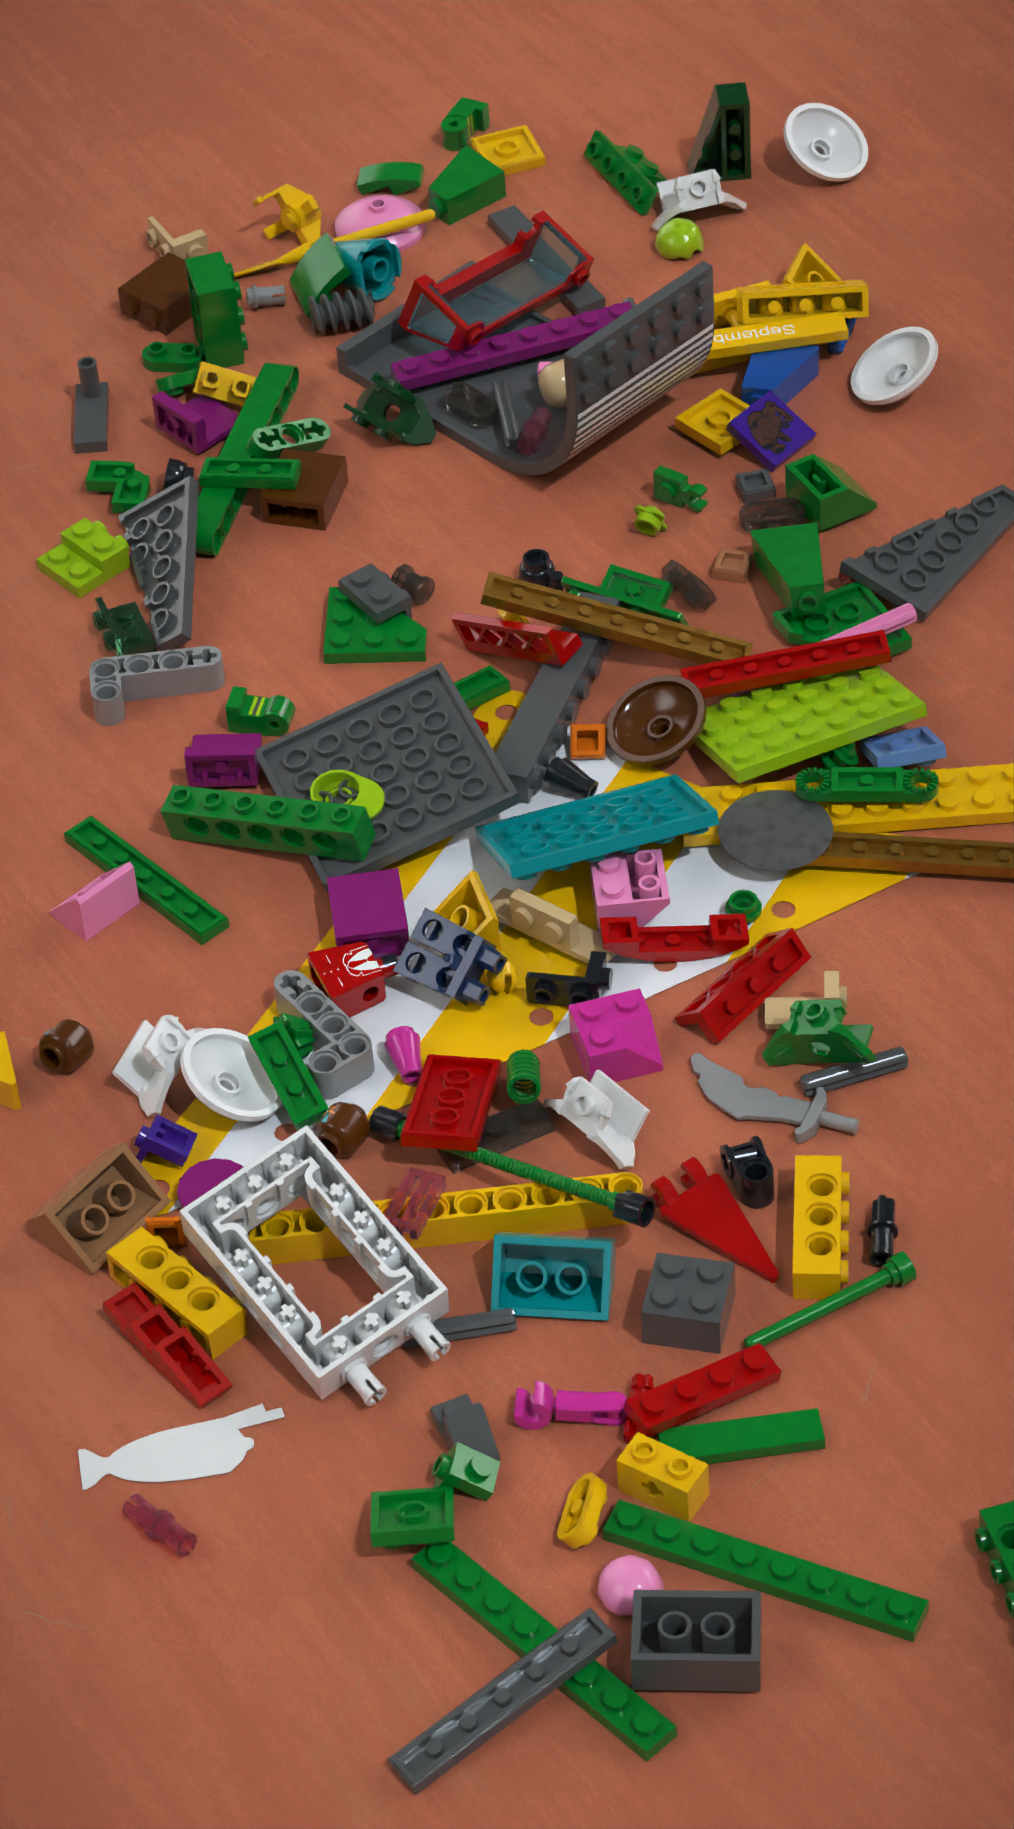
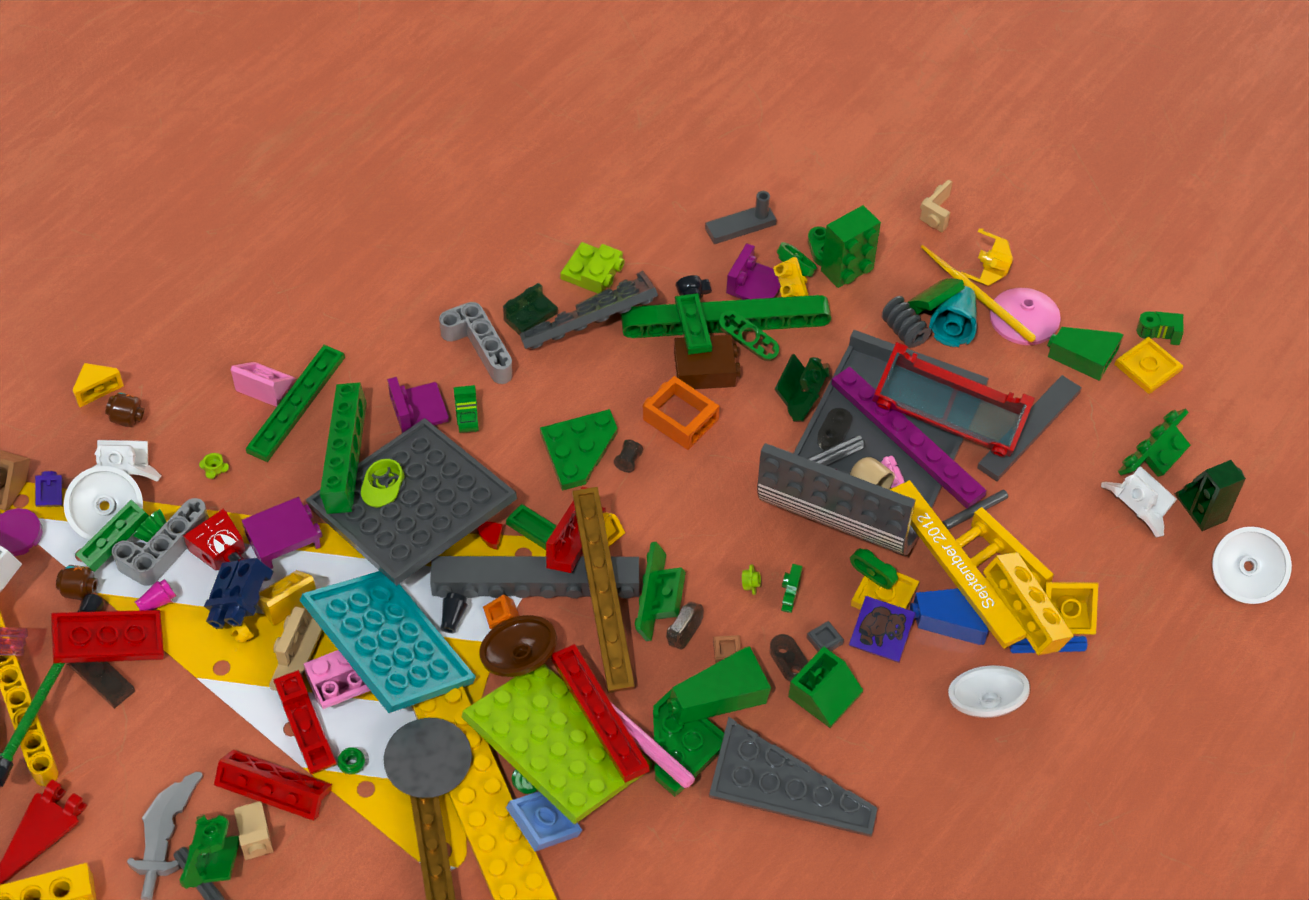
camera: 65 degrees right, 10 degrees up
(120, 477) = (676, 265): green plate -> none
(158, 295) = (893, 214): reddish brown brick -> none
(210, 973) = (216, 460): none -> lime plate
(263, 296) = (905, 271): light grey pin -> none
(376, 593) = (603, 438): dark grey bracket -> none
(379, 543) = (682, 435): none -> orange window
(396, 175) = (1078, 303): green slope -> none
(523, 1076) = (141, 671): green piece -> none
(540, 570) = (673, 529): black piece -> none
(569, 990) = (243, 688): black bracket -> none
(604, 1114) = (99, 746): white piece -> none
(615, 1036) = (194, 716): dark pink slope -> none
(679, 239) = (1093, 504): lime hair -> none
(694, 409) = (873, 568): none -> green plate
(749, 1172) = (85, 839): black piece -> none
(867, 784) = (484, 804): green plate -> none

